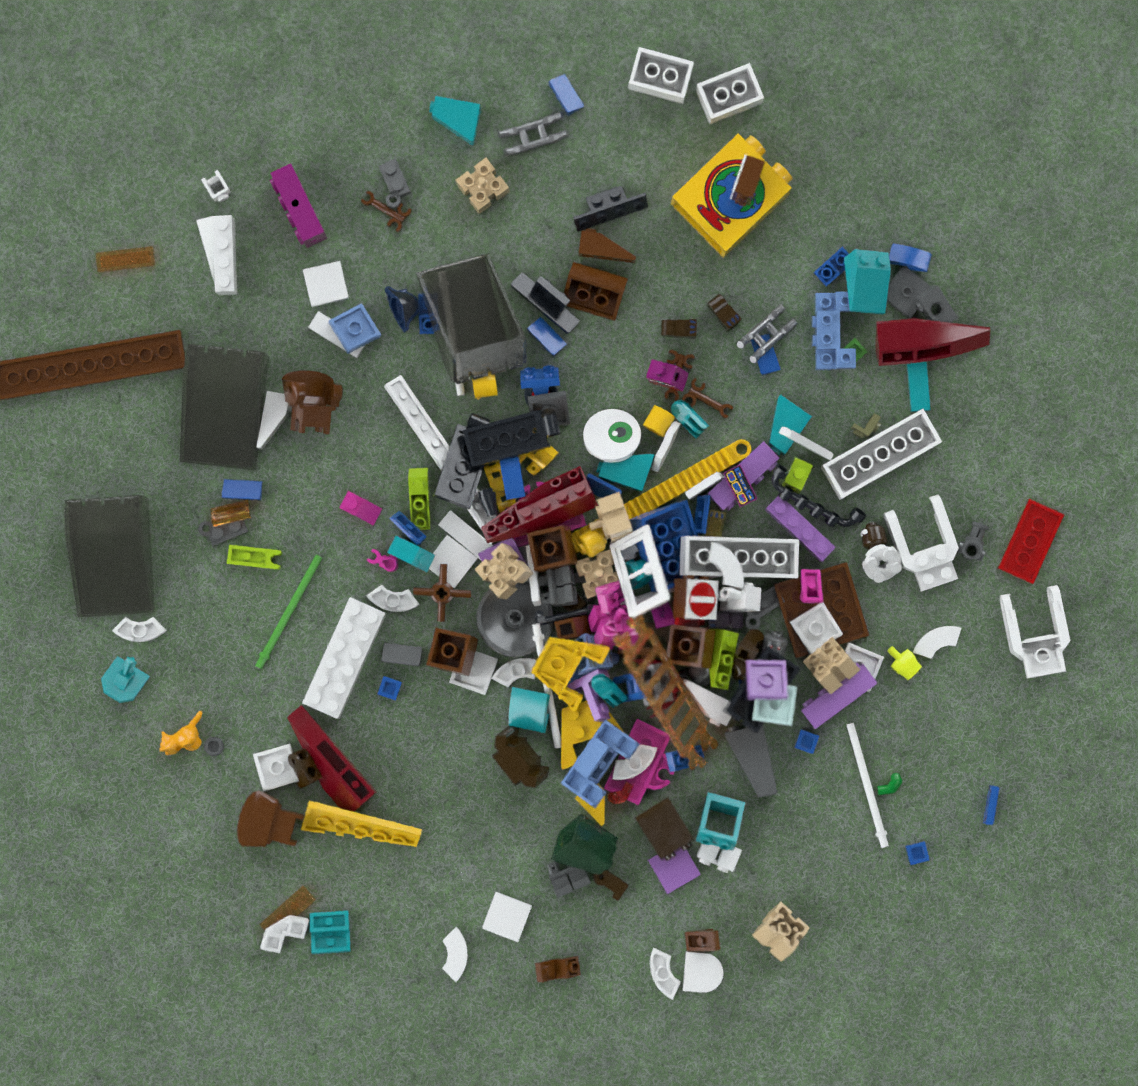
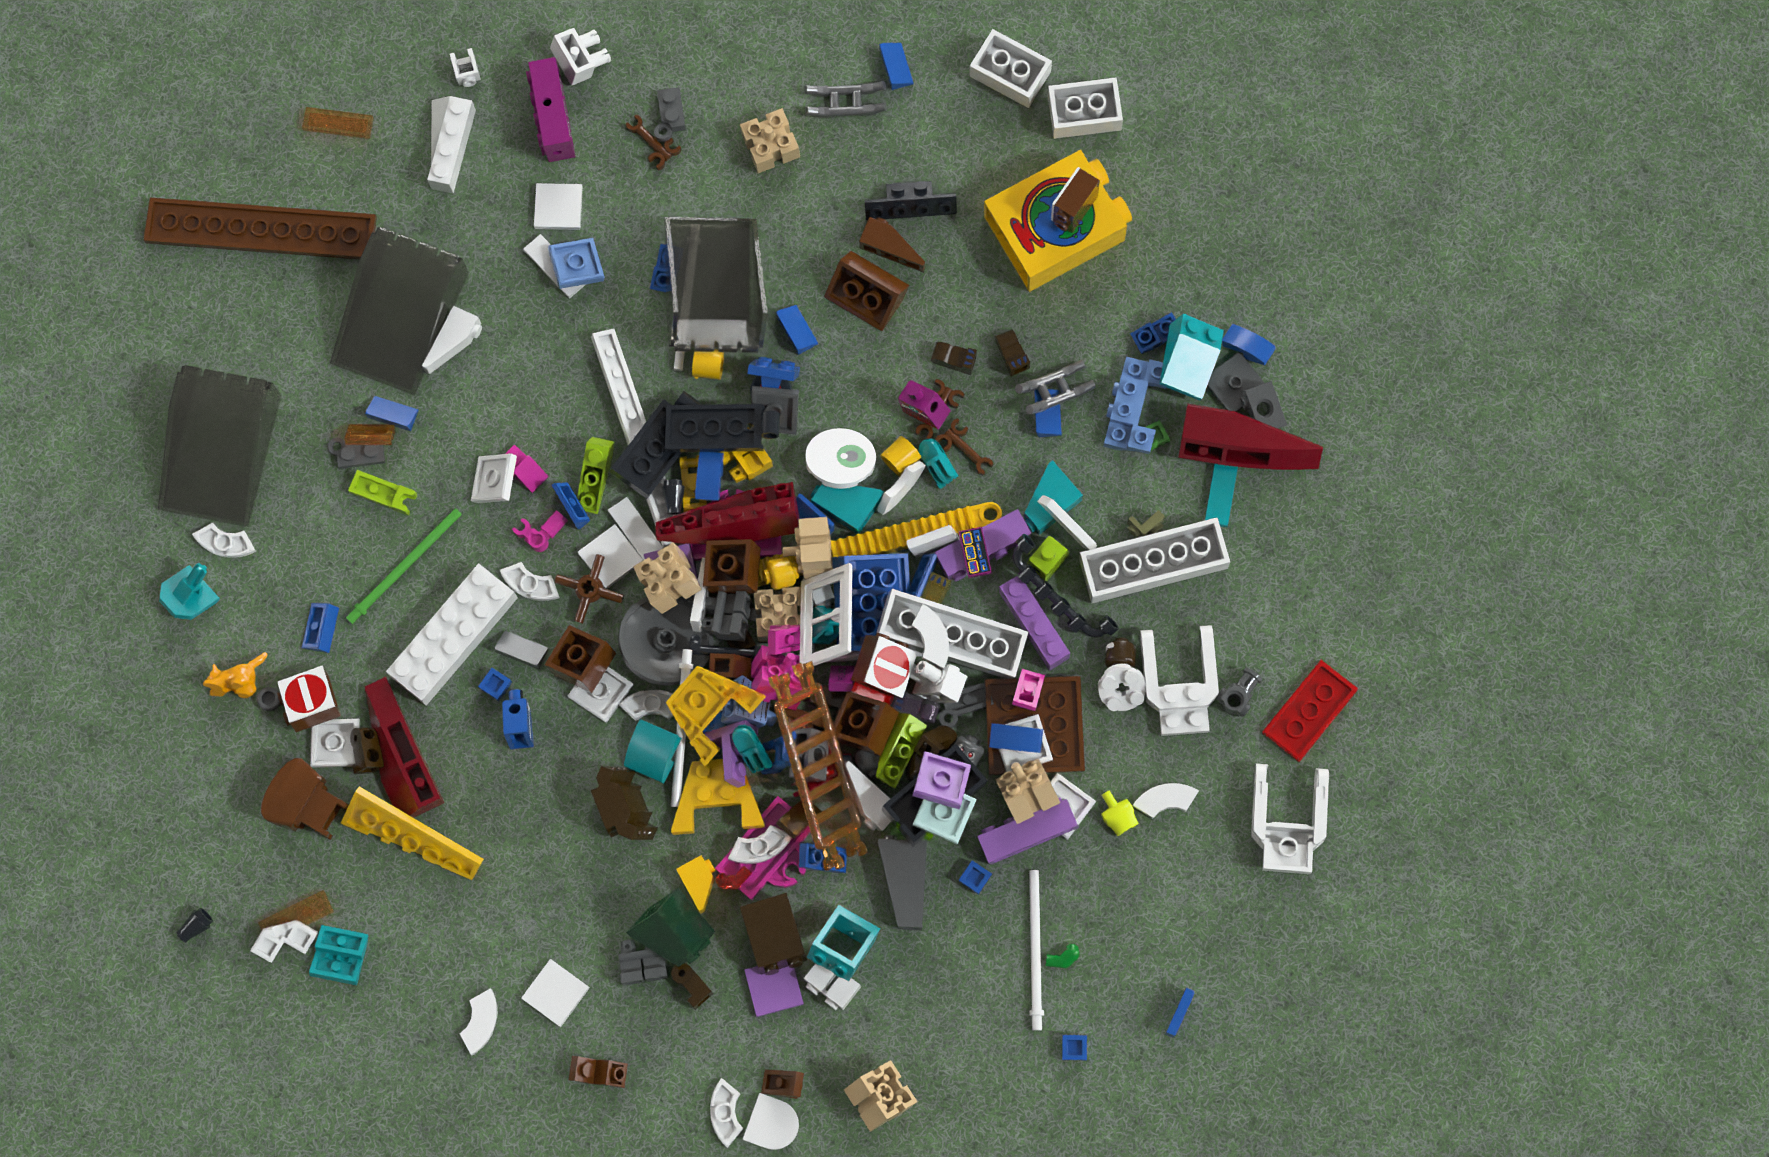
camera: 20 degrees right, 10 degrees down
(211, 938) = (195, 924): none -> black cone
(237, 678) = (320, 627): none -> blue slope
(246, 740) = (308, 699): none -> piece
(302, 155) = (574, 58): none -> white brick
(308, 395) = (501, 327): reddish brown piece -> none
(340, 523) = (493, 478): none -> white tile
(403, 306) = (640, 252): hat -> none
(411, 554) = (565, 533): teal slope -> none
(419, 719) = (517, 721): none -> blue torso
(457, 116) = (763, 58): teal slope -> none
(546, 300) = (808, 286): bracket -> none
(596, 759) = (714, 829): medium blue bracket -> none
(657, 735) = (795, 821): none -> dark brown slope
(811, 627) = (1016, 738): none -> blue slope

